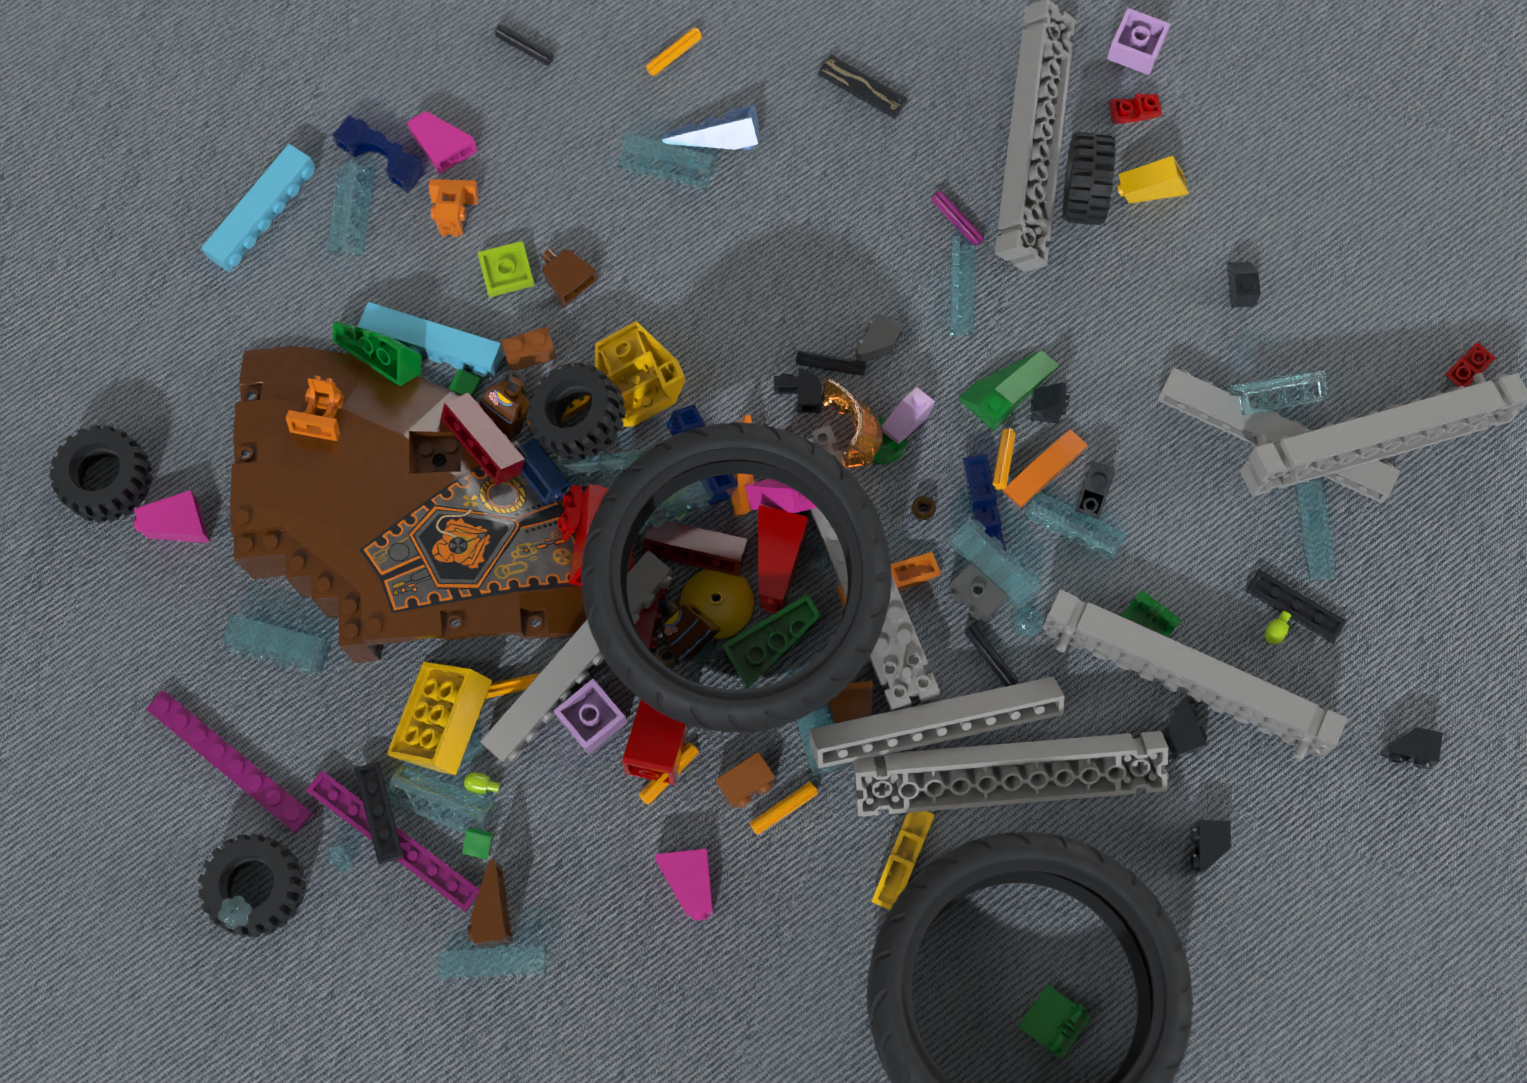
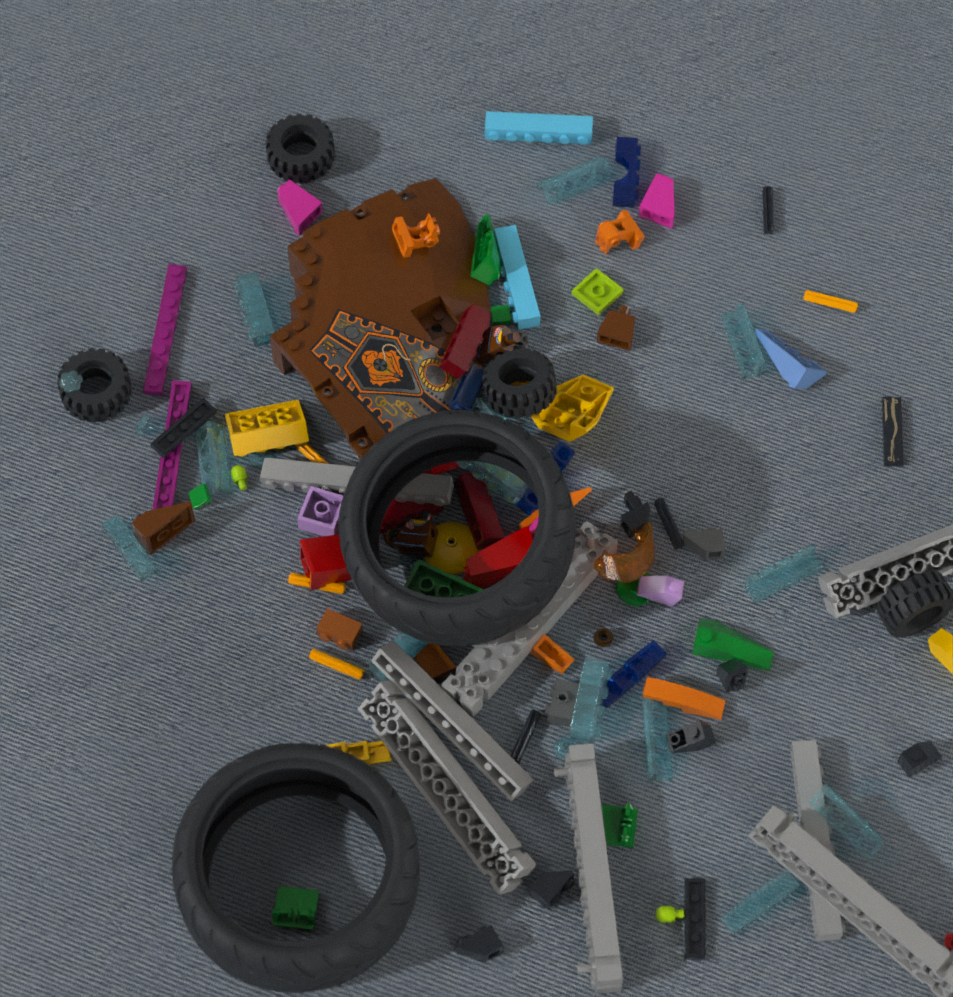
camera: 55 degrees right, 10 degrees down
(529, 349) = (549, 336): dark orange brick -> none
(689, 880) = (252, 632): dark pink slope -> none
(957, 218) = (834, 545): magenta axle -> none
(1004, 459) = (671, 667): light orange axle -> none

